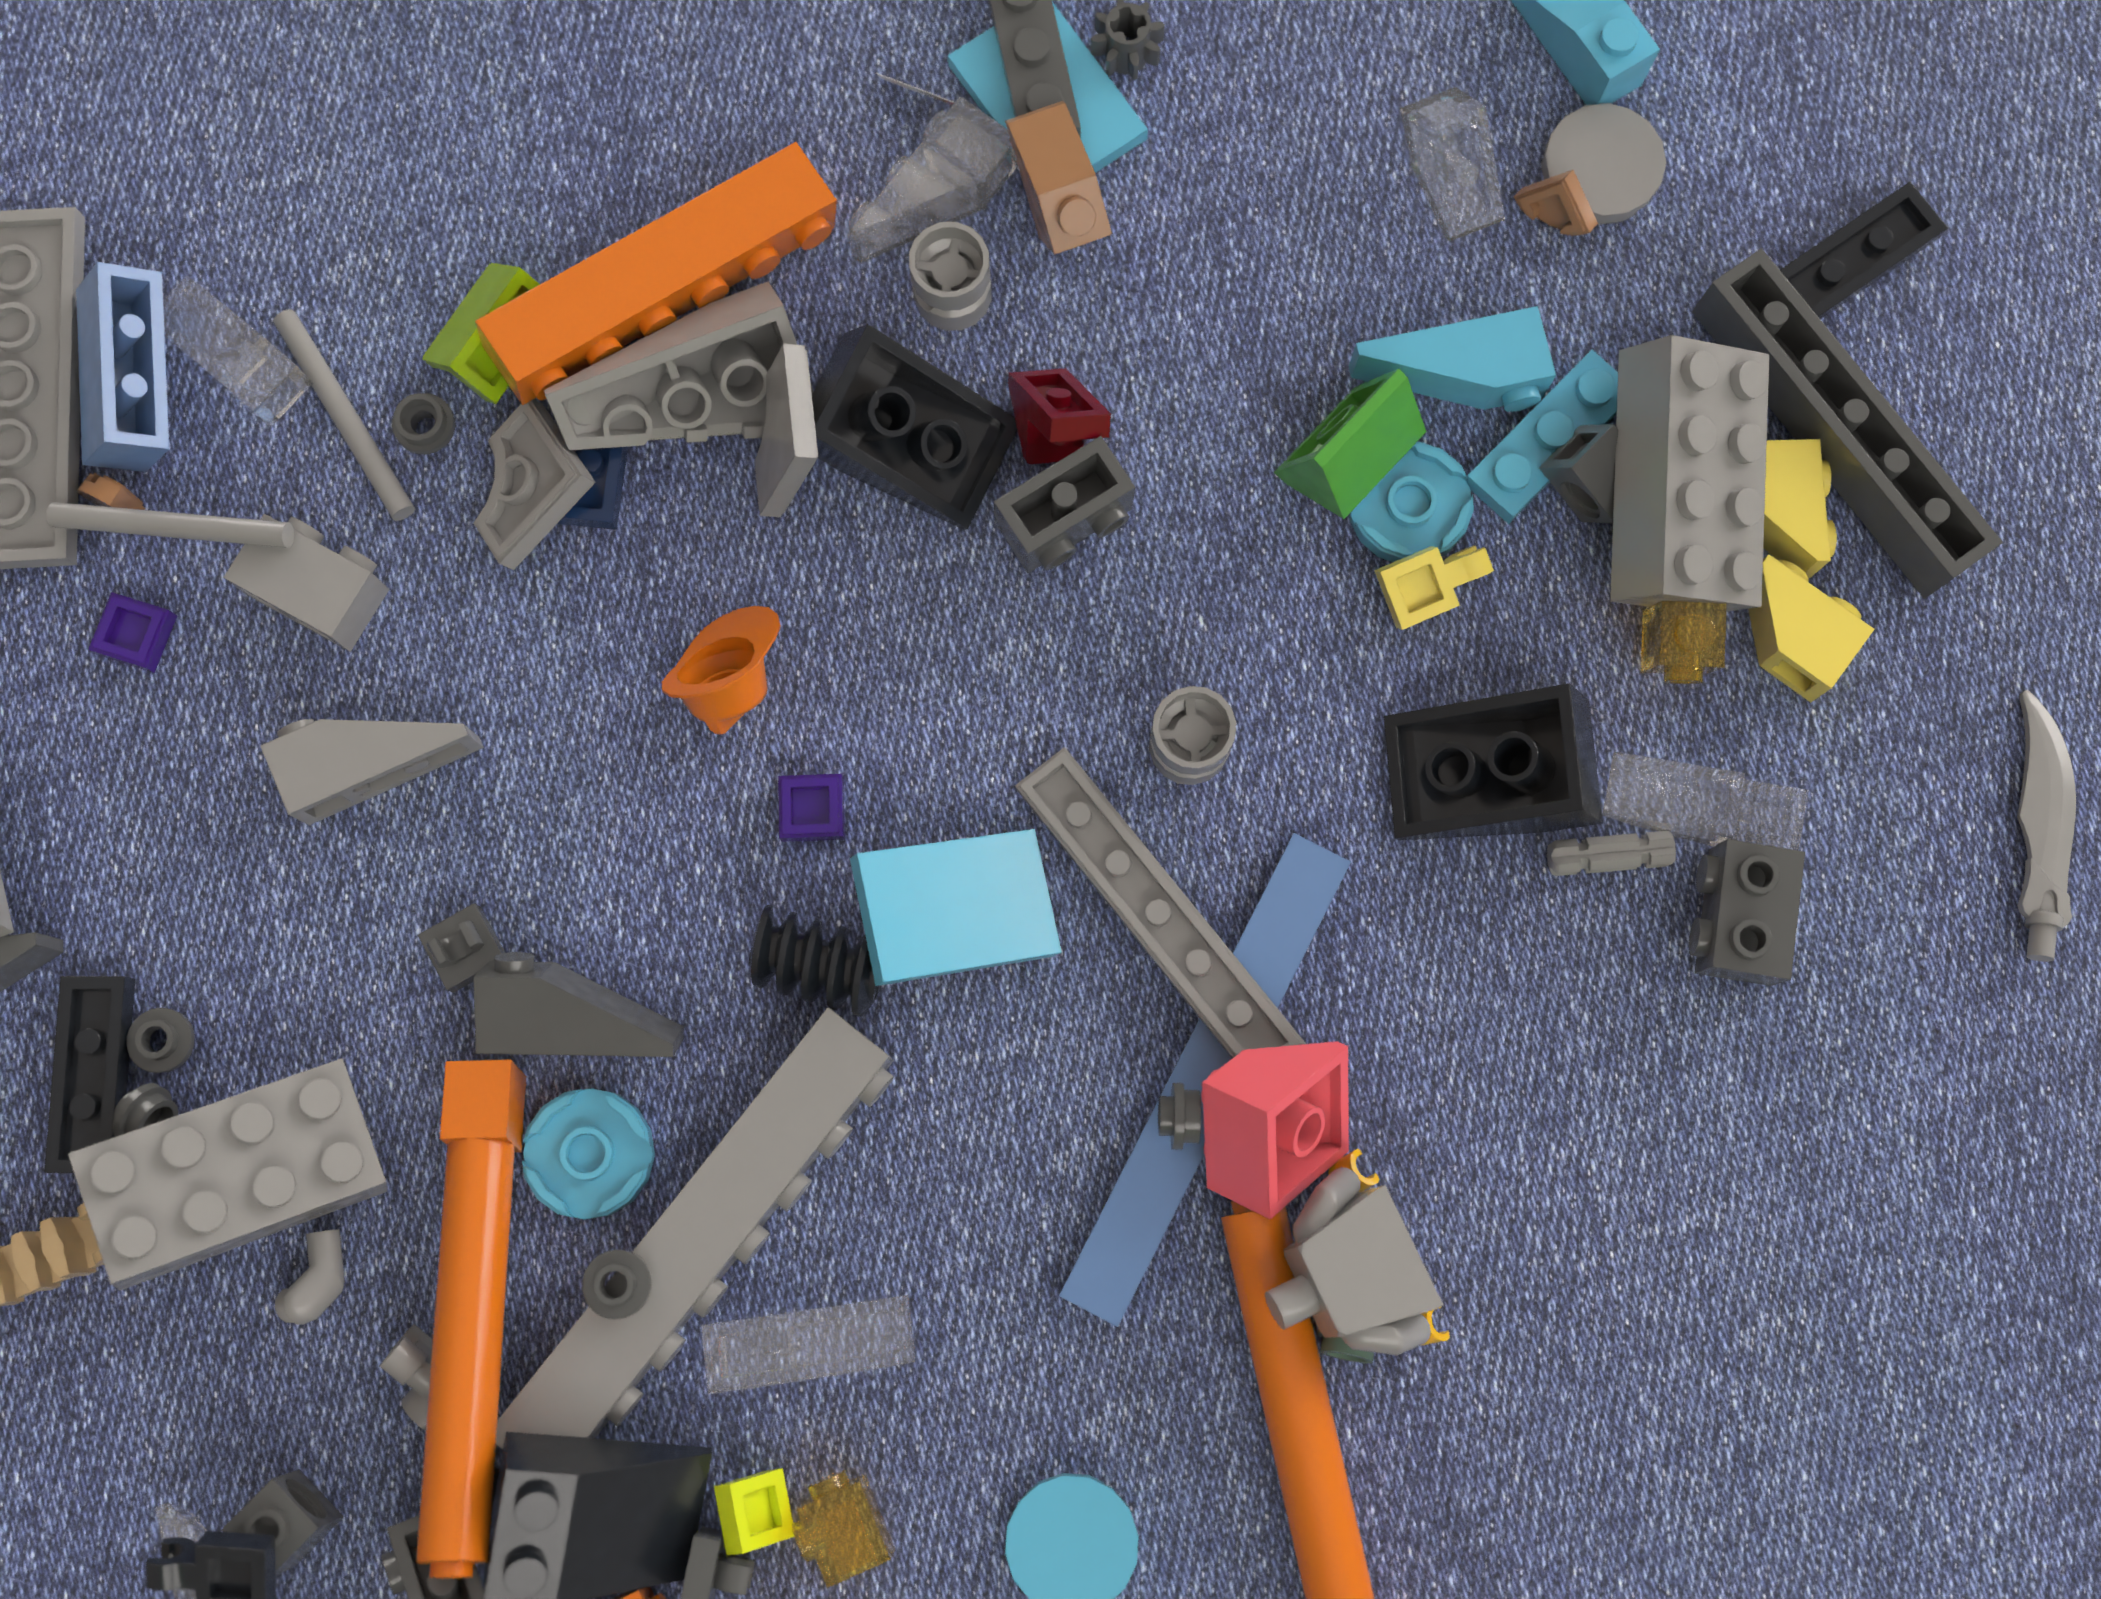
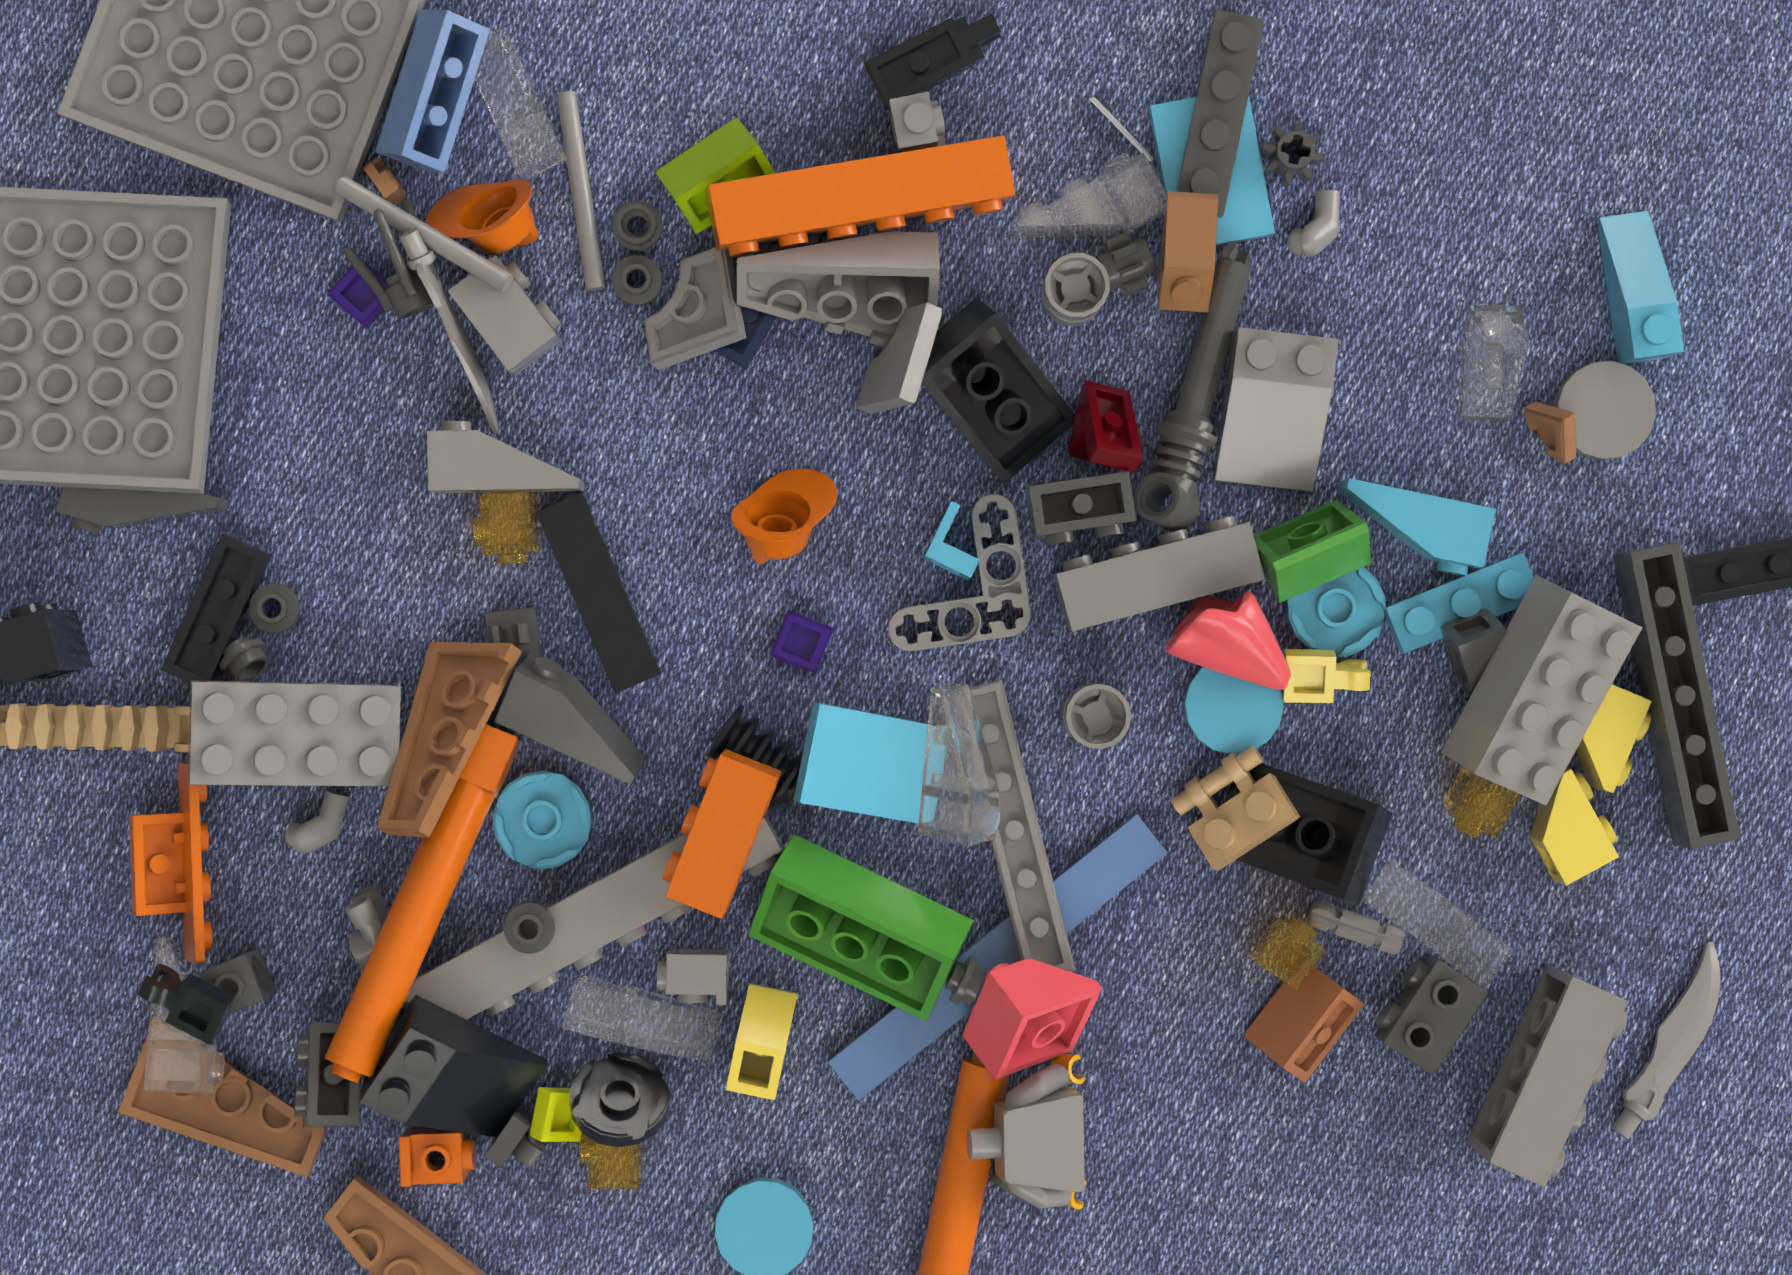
camera: 20 degrees right, 10 degrees up
(141, 1413) = (169, 866): none -> orange bracket
(178, 603) = (405, 291): none -> dark grey plant
(179, 554) = (422, 260): none -> light grey sword
(249, 480) = (487, 215): none -> orange piece
(404, 820) = (507, 526): none -> clear yellow brick
(414, 1090) = (443, 726): none -> medium nougat wing
(457, 495) = (641, 295): none -> dark grey plate
(547, 854) = (599, 592): none -> black tile
(680, 107) = (930, 57): none -> black hinge
(687, 168) = (916, 122): none -> light grey brick
(802, 1059) = (720, 832): none -> orange brick
(820, 1457) = (619, 1100): none -> black tile
(850, 1258) = (695, 974): none -> light grey brick
(936, 624) = (947, 555): none -> medium azure panel
(966, 1304) = (761, 1041): none -> light yellow slope
(1002, 224) = (1127, 263): none -> dark grey gear
(1009, 652) = (993, 590): none -> light grey beam
(1024, 1110) = (859, 927): none -> bright green slope
(1062, 876) = (958, 775): none -> clear slope
(1149, 375) = (1187, 429): none -> dark grey piece
(1191, 549) = (1158, 576): none -> light grey brick
(1198, 104) = (1321, 229): none -> light grey arm
(1236, 310) = (1274, 408): none -> light grey slope
(1311, 581) = (1231, 641): none -> coral hat
(1346, 660) = (1230, 711): none -> medium azure tile
(1421, 781) = (1243, 820): none -> tan plate
(1547, 911) = (1288, 951): none -> clear yellow brick
(1605, 988) = (1304, 1024): none -> nougat panel
(1924, 916) = (1548, 1076): none -> light grey brick

